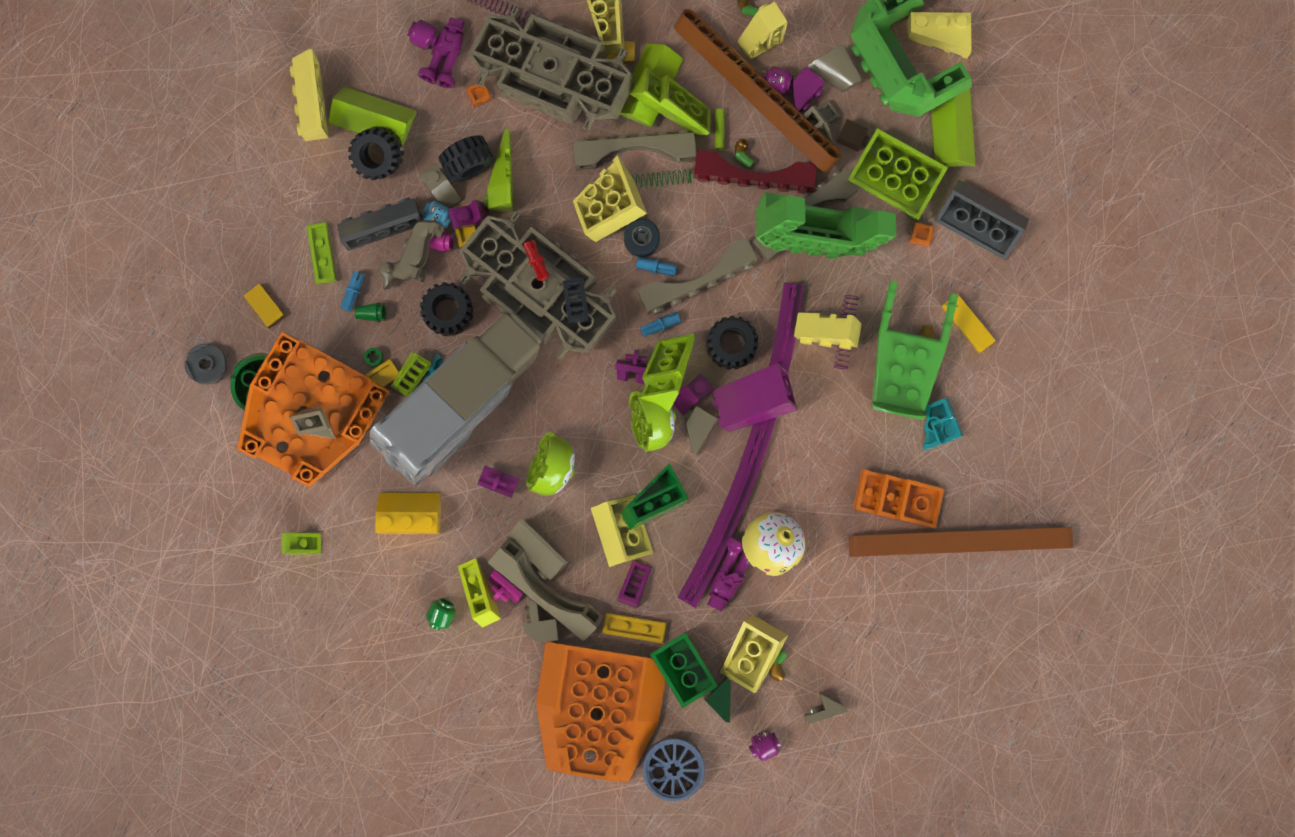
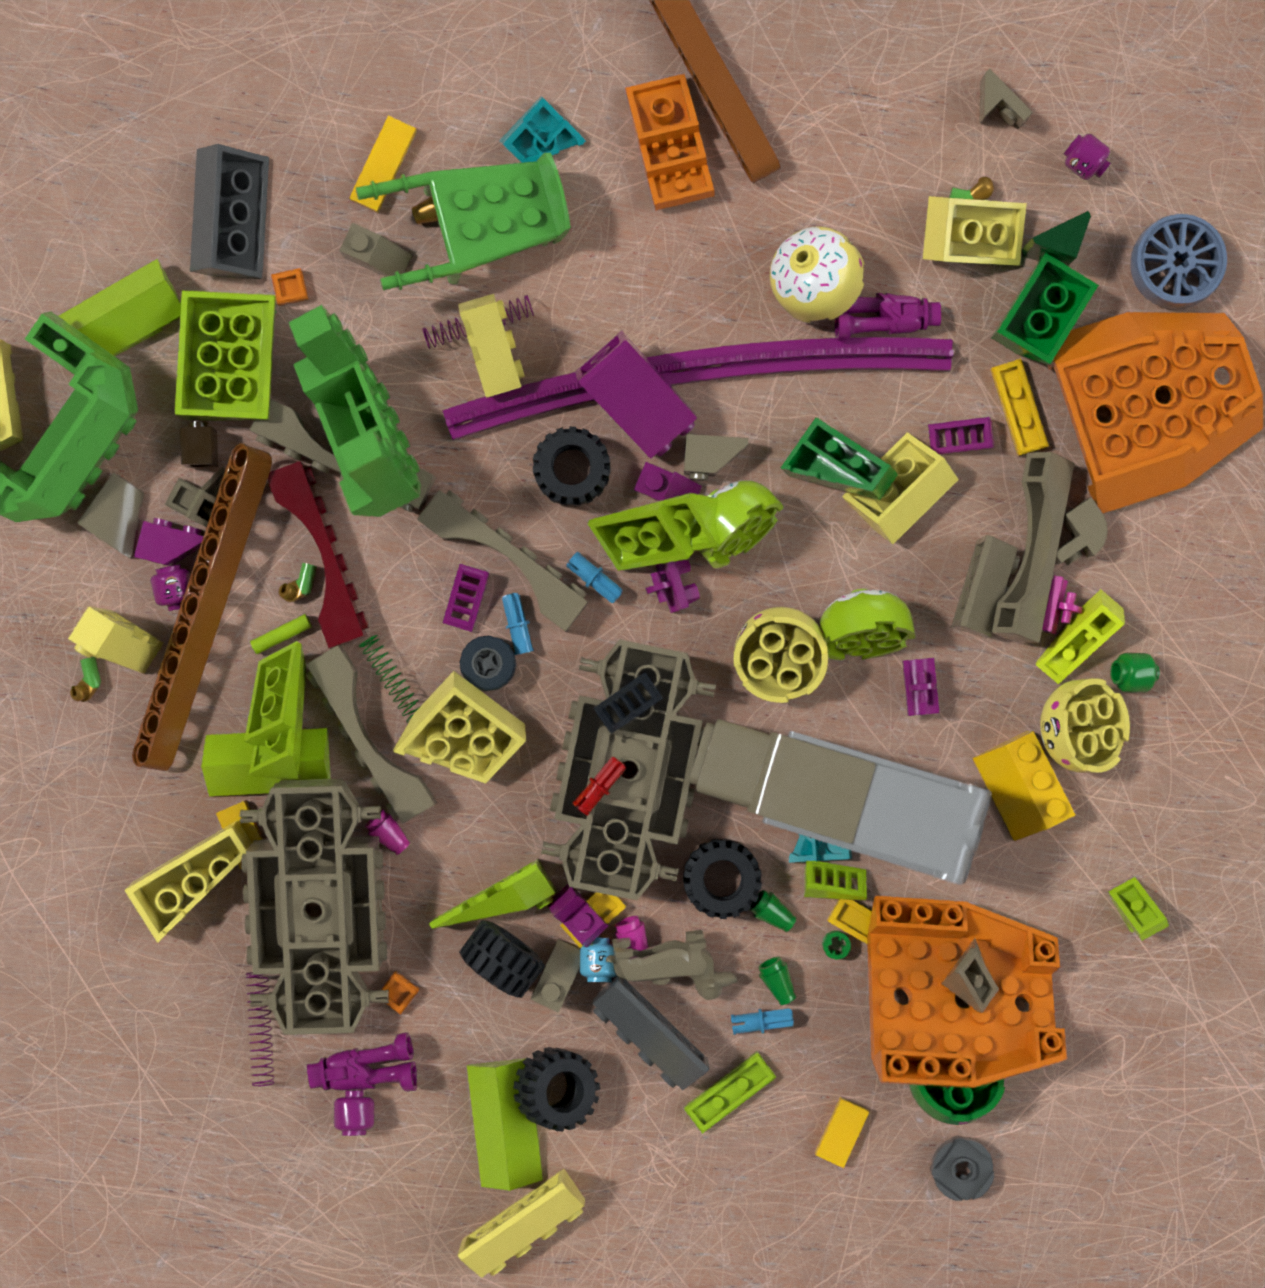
camera: 115 degrees left, 5 degrees up
(414, 328) = (772, 911): none -> green cone
(424, 565) = (1085, 725): none -> light yellow cylinder
(559, 406) = (780, 668): none -> light yellow cylinder
(573, 132) = (389, 832): none -> dark pink cone
(692, 259) = (475, 573): none -> magenta slope
(916, 292) = (374, 252): none -> dark tan slope

